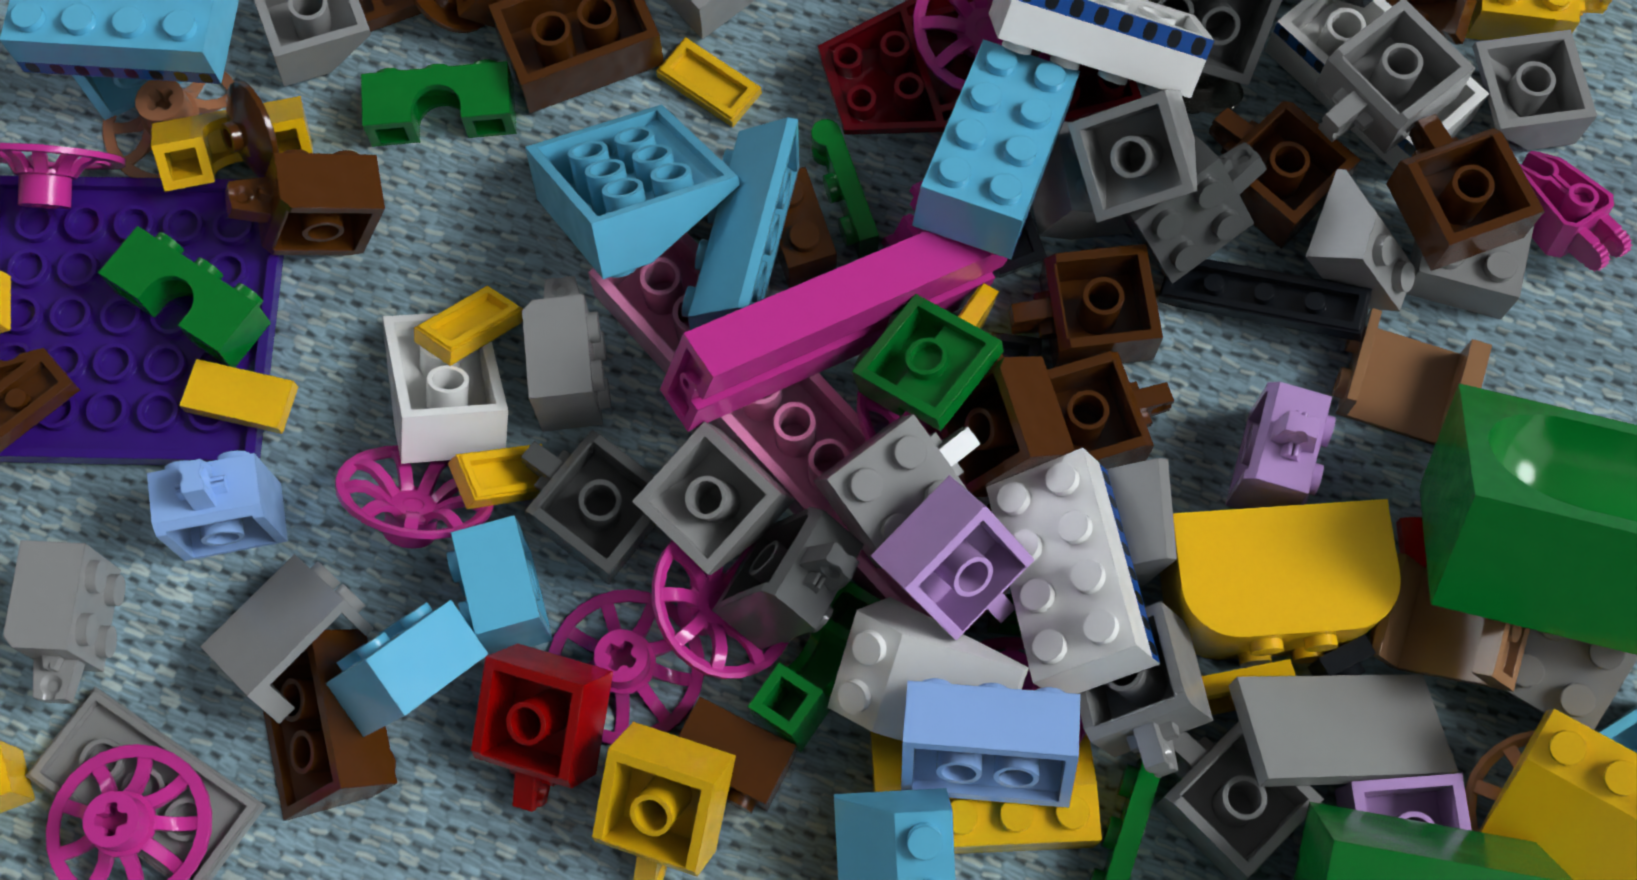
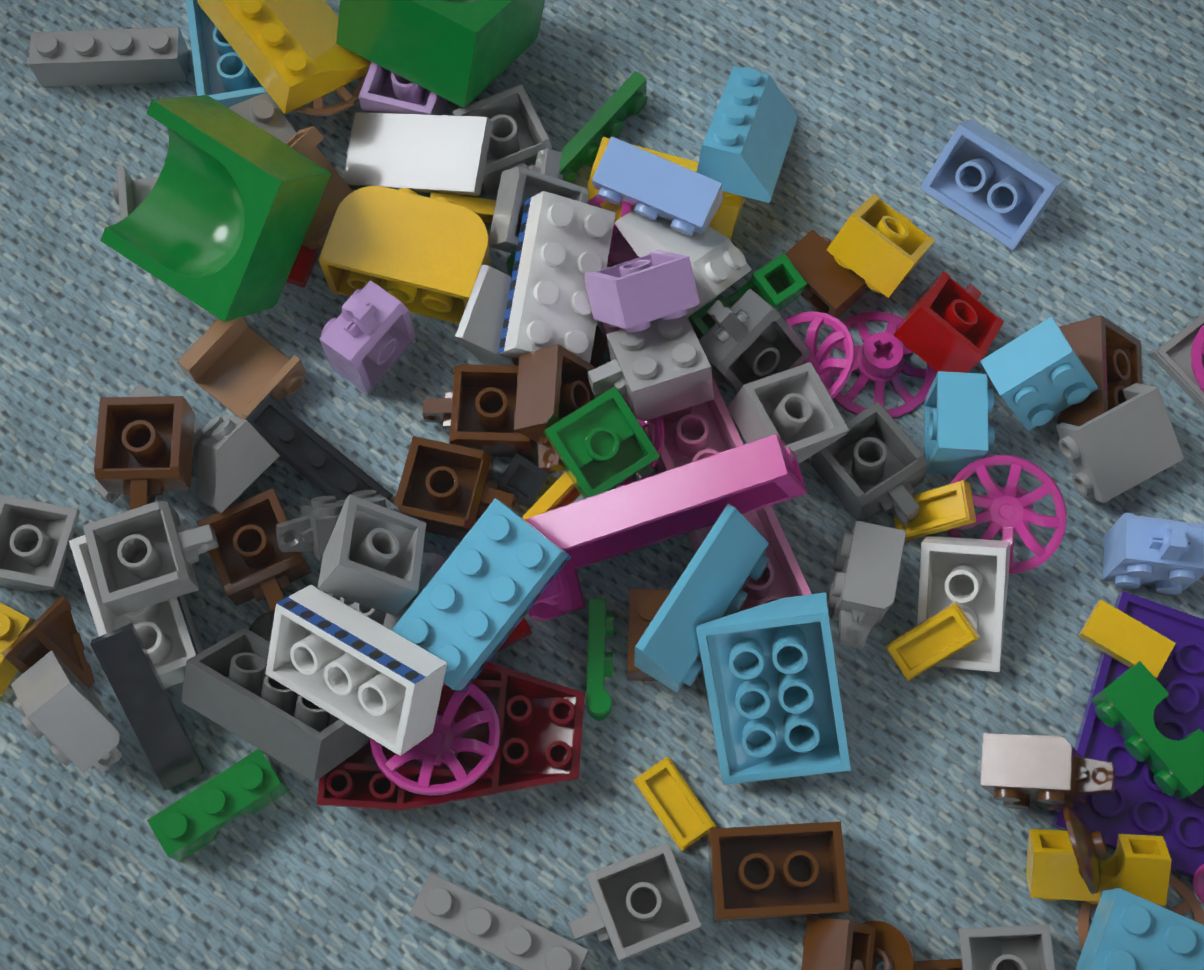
camera: 160 degrees left, 0 degrees up
(399, 99) = (948, 869): green arch -> none
(1574, 214) = (61, 449): dark pink hinge -> none

